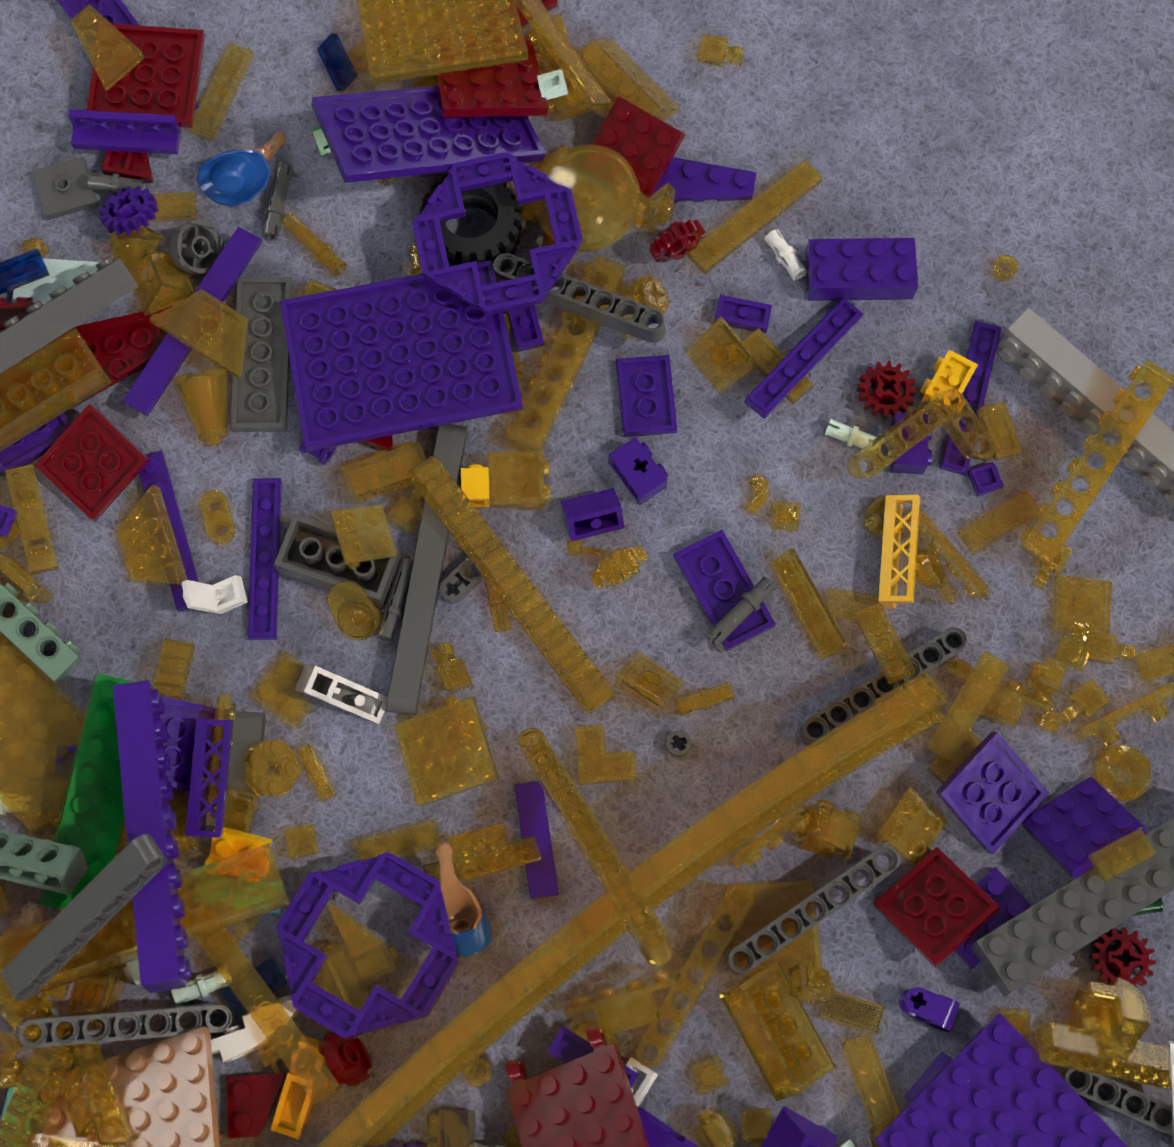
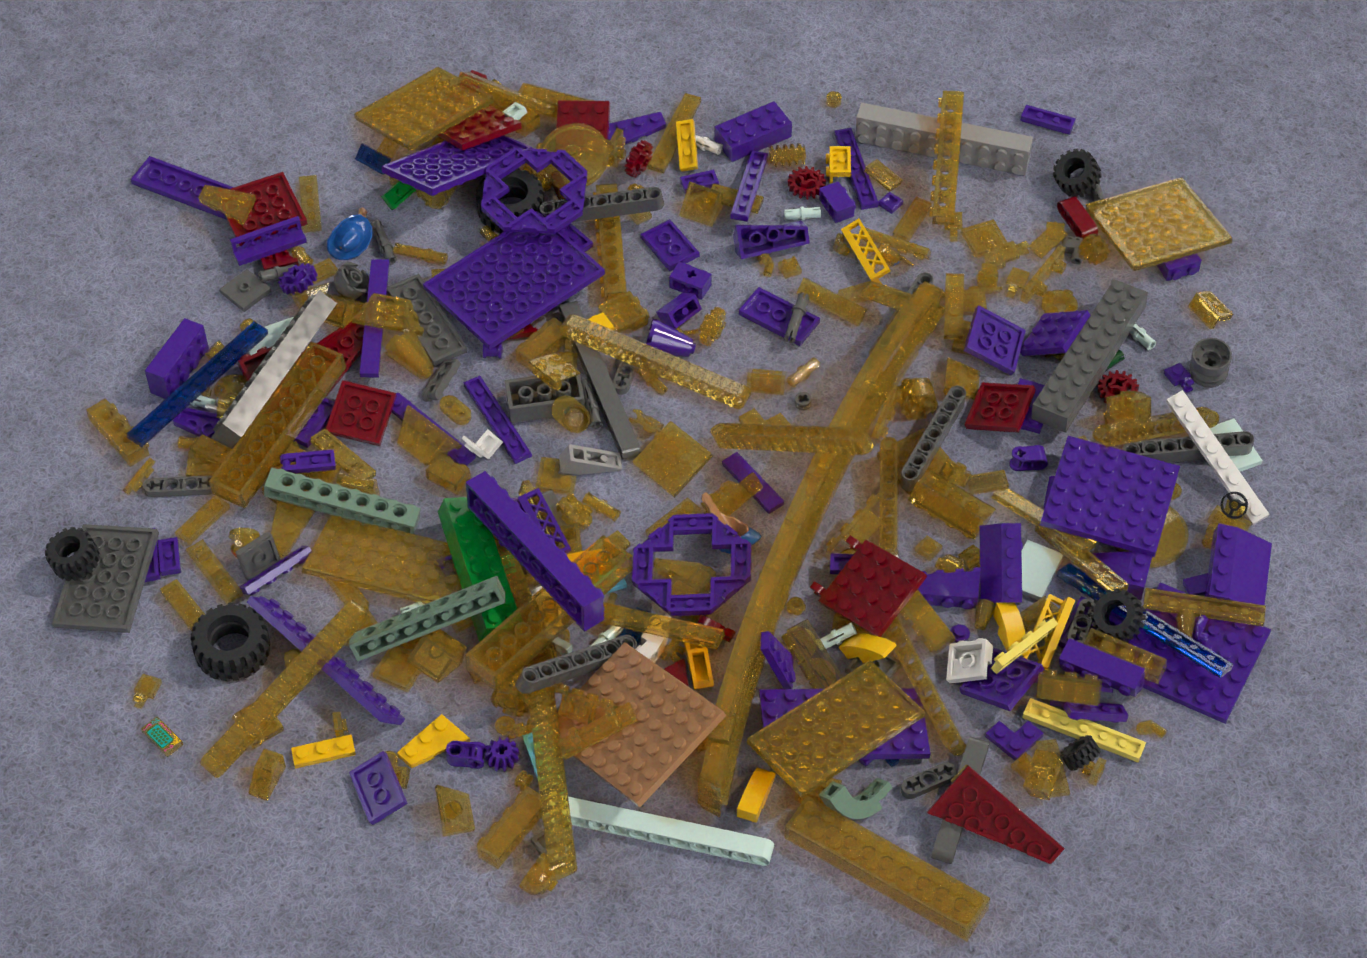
camera: 25 degrees left, 20 degrees down
(83, 917) = (526, 596): dark grey beam -> none
(151, 615) = (448, 474): none -> clear yellow brick
(161, 165) = (301, 255): none -> clear yellow pin
(224, 461) = (440, 380): none -> dark grey plate
(549, 557) = (669, 339): none -> dark purple cone
(716, 50) = (597, 62): clear yellow plate -> none
(757, 248) = (687, 145): none -> yellow plate
(782, 462) = (760, 239): none -> dark purple wedge
(885, 332) = (789, 155): none -> clear yellow piece
(918, 430) = (849, 171): clear yellow beam -> none
(1048, 721) = (1003, 298): clear yellow plate -> none
(1122, 855) = (1083, 325): clear yellow plate -> none

